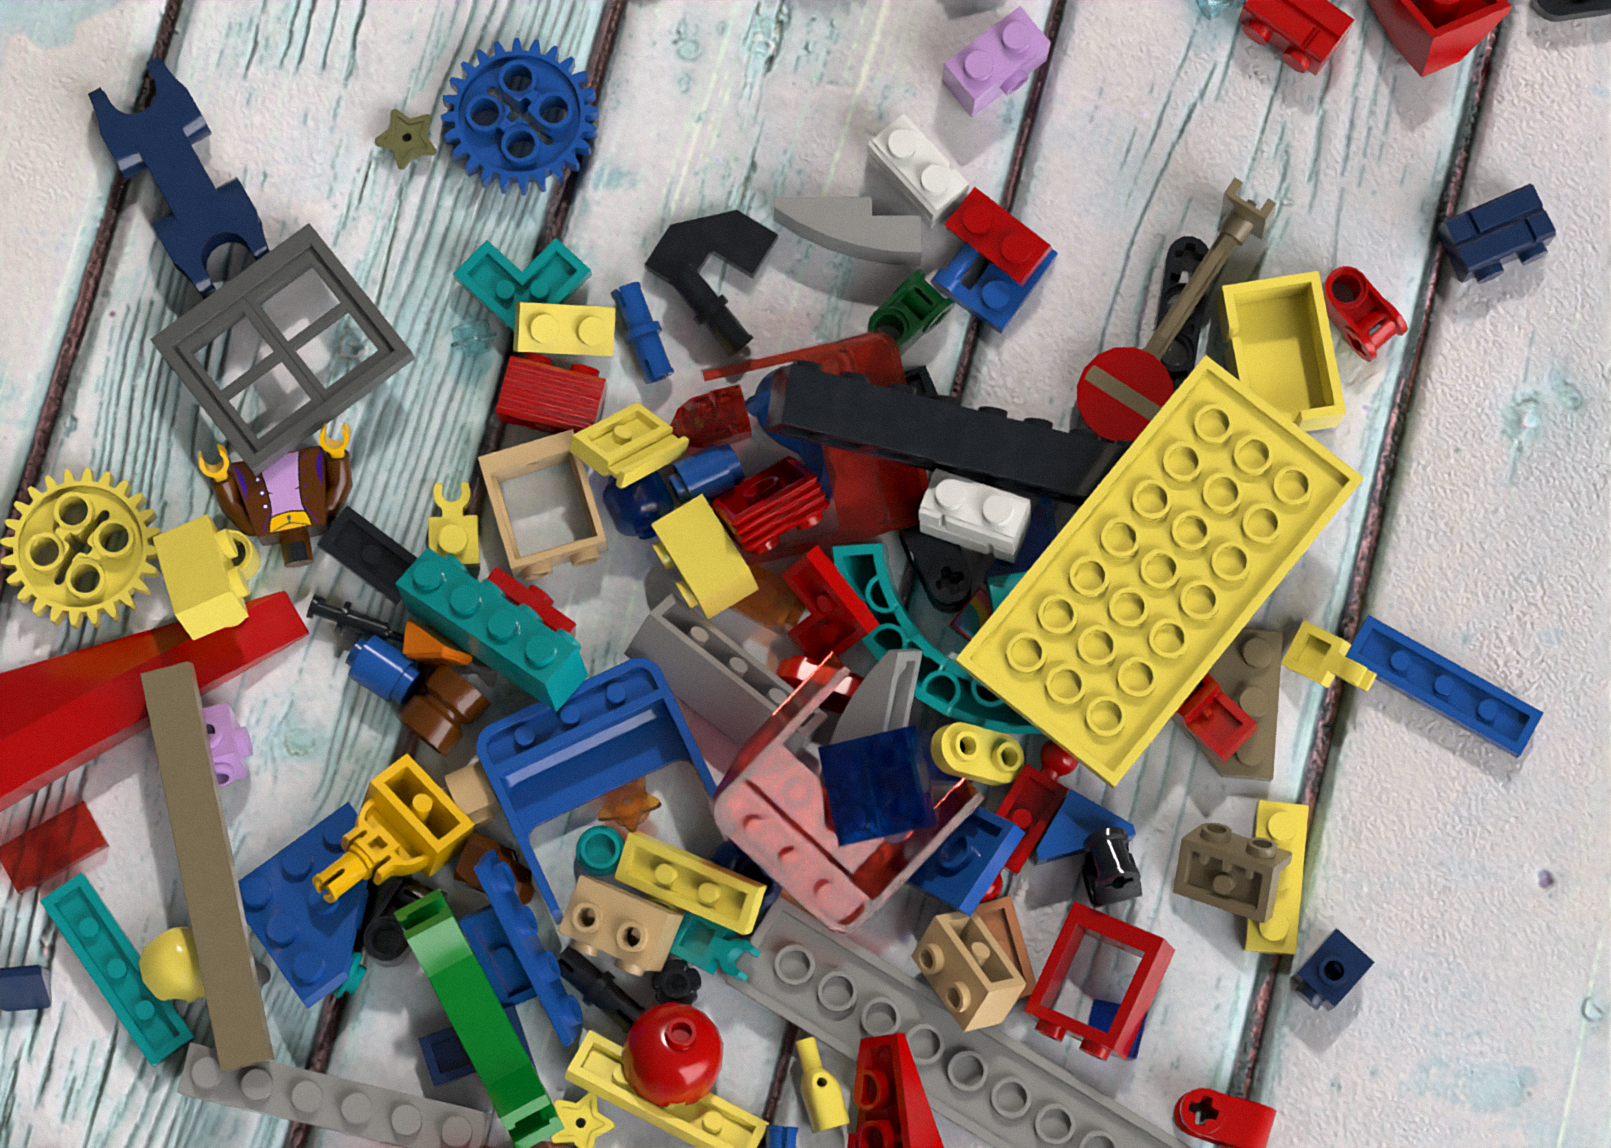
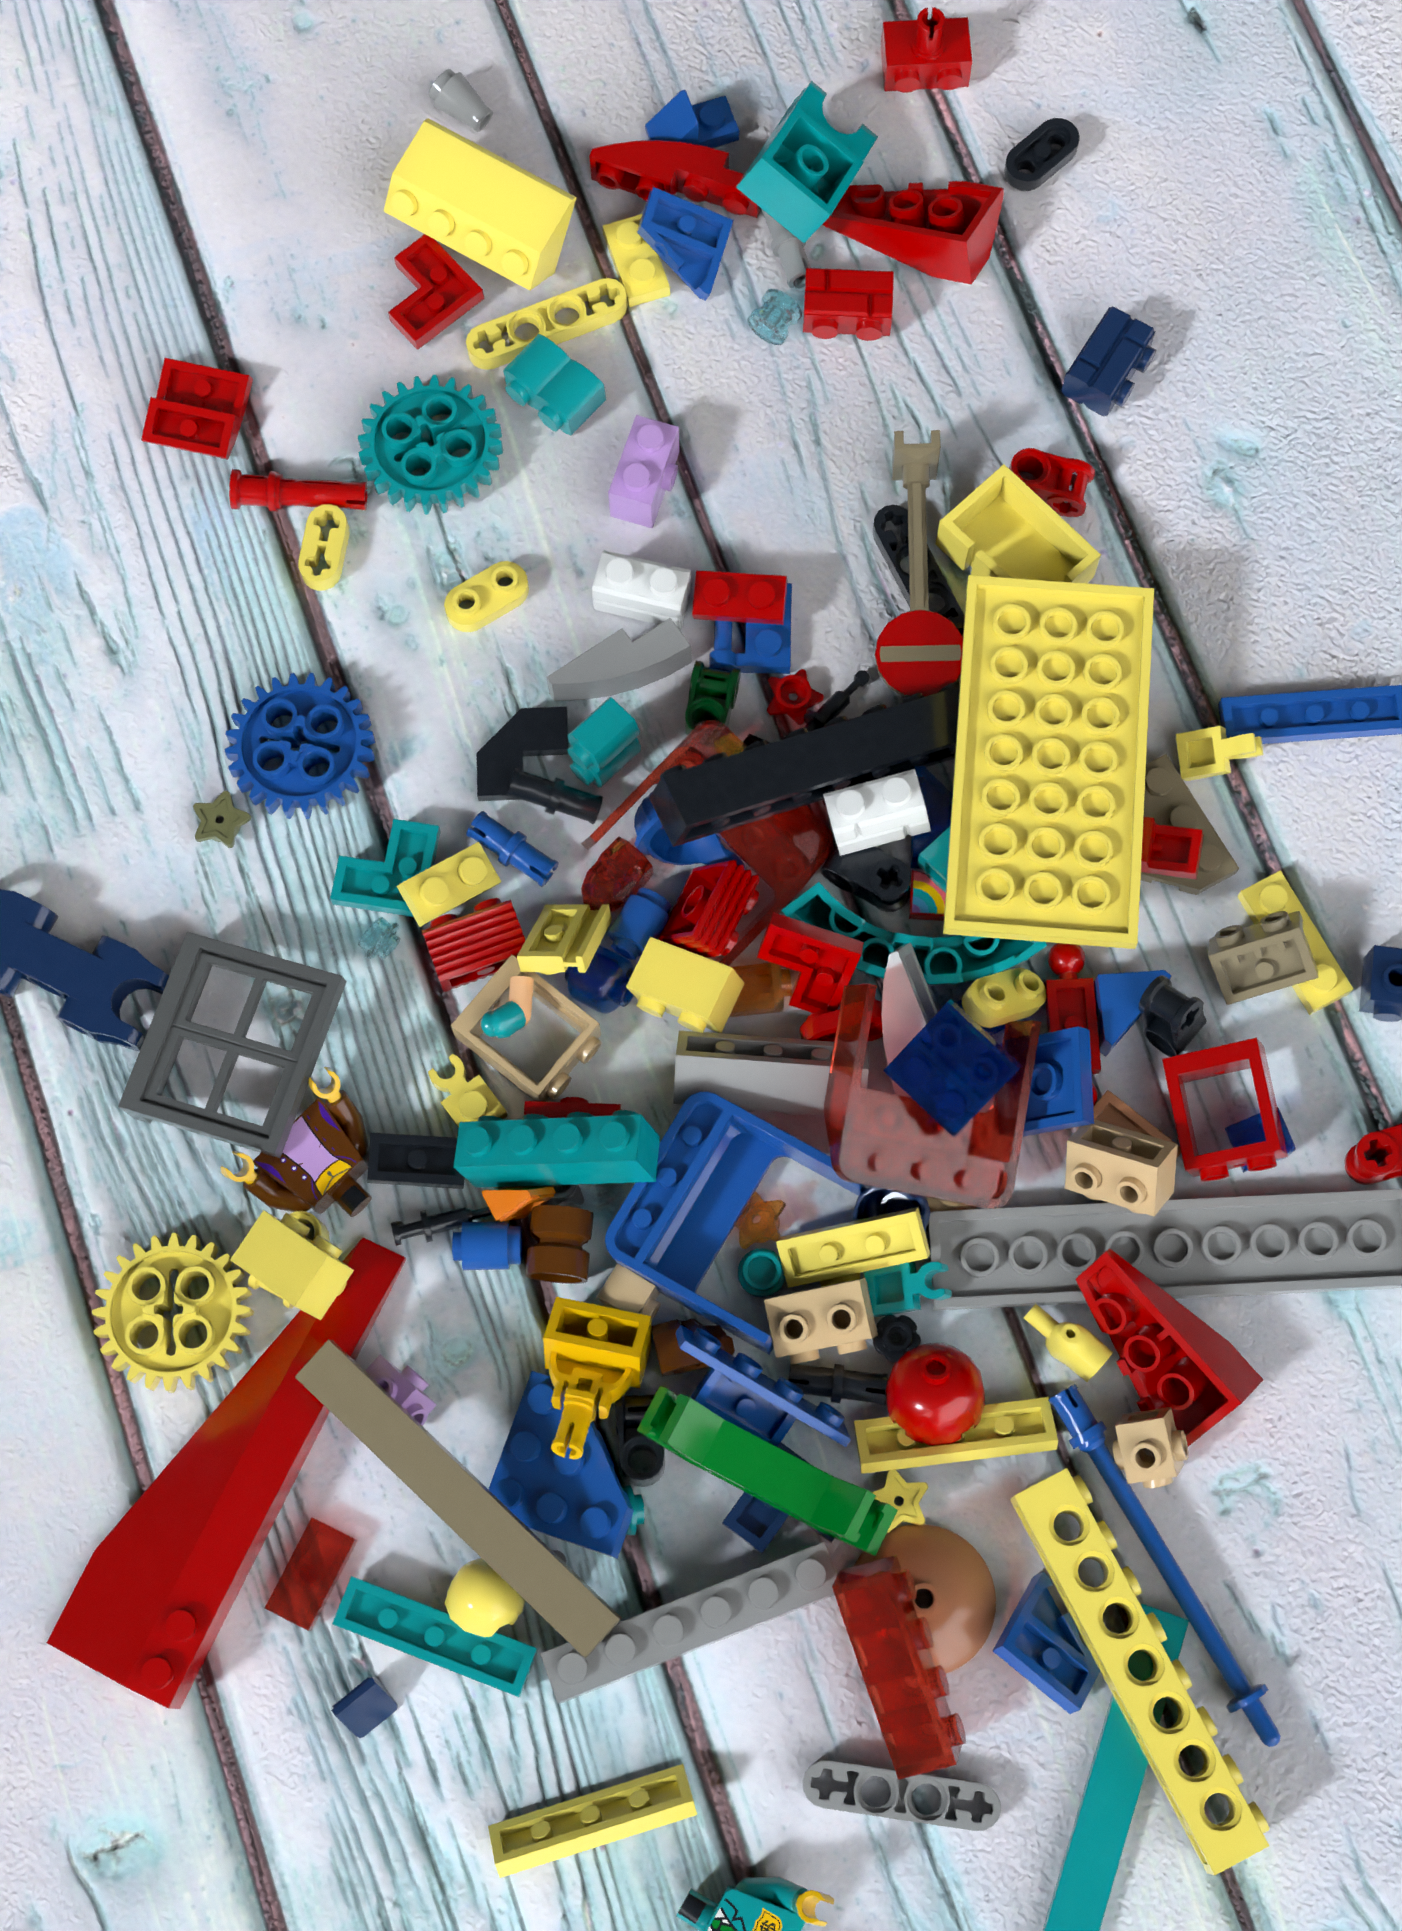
camera: 30 degrees left, 5 degrees down
(537, 484) = (514, 1013): none -> teal arm
(778, 89) = (489, 597): none -> light yellow plate
(780, 292) = (603, 743): none -> teal brick
(983, 344) = (797, 685): none -> red plate
(1009, 392) = (834, 704): none -> black piece

